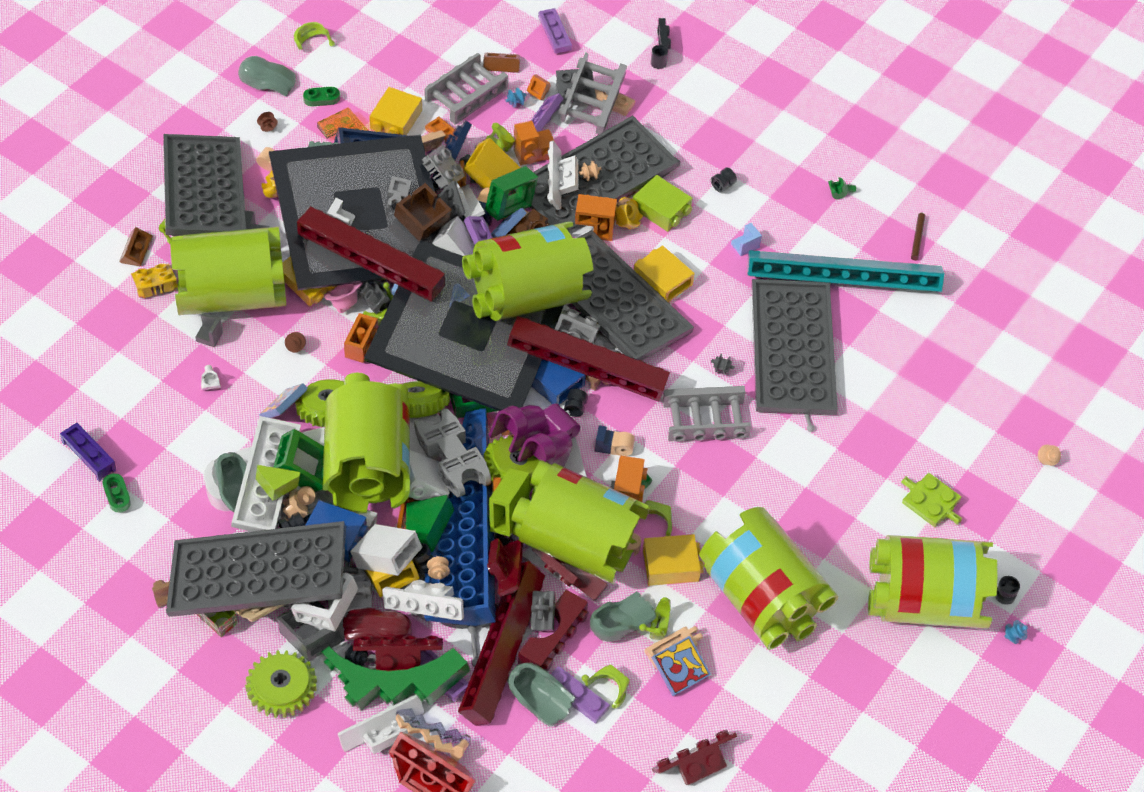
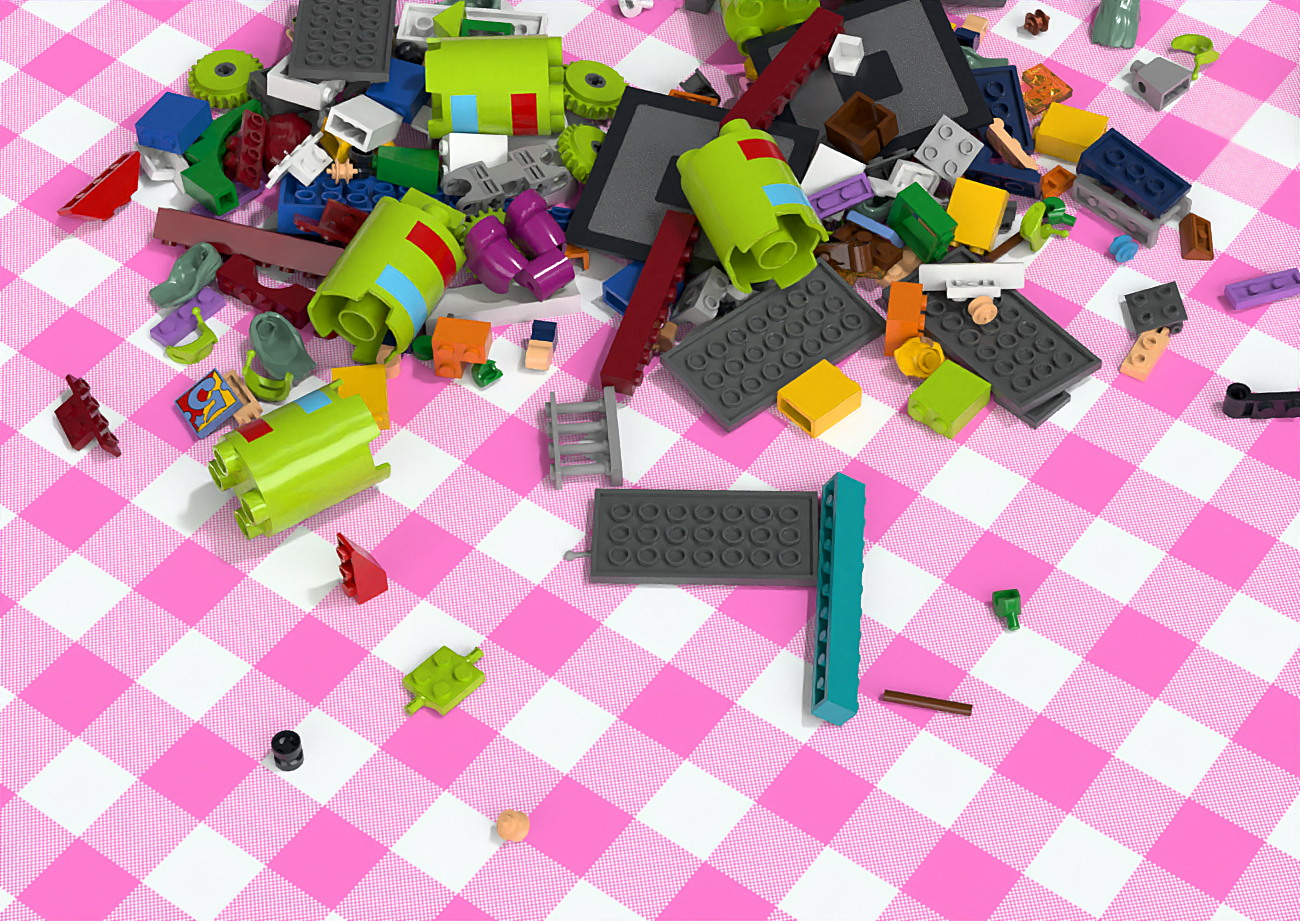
camera: 95 degrees right, 5 degrees down
(284, 401) = (591, 52): medium blue tile -> none
(295, 342) = (686, 64): copper wheel -> none
(321, 96) = (1095, 71): green plate -> none
(334, 330) = (699, 85): none -> dark grey piece
(343, 59) = (1160, 81): none -> light grey torso
(365, 706) = (173, 123): none -> blue brick
(398, 190) = (898, 102): light grey plate -> none
(425, 729) = (147, 212): piece -> none
(459, 74) = (1127, 167): none -> dark blue plate
(478, 130) = (1056, 212): none -> green piece
(529, 144) = (1031, 245): orange brick -> none
(538, 87) = (1150, 271): orange tile -> none
(543, 611) = (291, 271): dark grey hips -> none
(546, 110) = (1093, 277): medium lavender plate -> none
(576, 401) = (601, 310): black wheel -> none
(605, 106) = (1134, 337): light grey fence -> none
(663, 511) = (429, 395): lime helmet -> none
(721, 181) = (1001, 466): black wheel -> none
(722, 364) = (668, 457): dark grey wheel -> none
(748, 241) = (891, 494): light blue panel -> none
(854, 545) = (360, 571): none -> slope
(932, 581) = (279, 633): lime brick -> none
(1016, 631) = (220, 754): dark azure wheel -> none

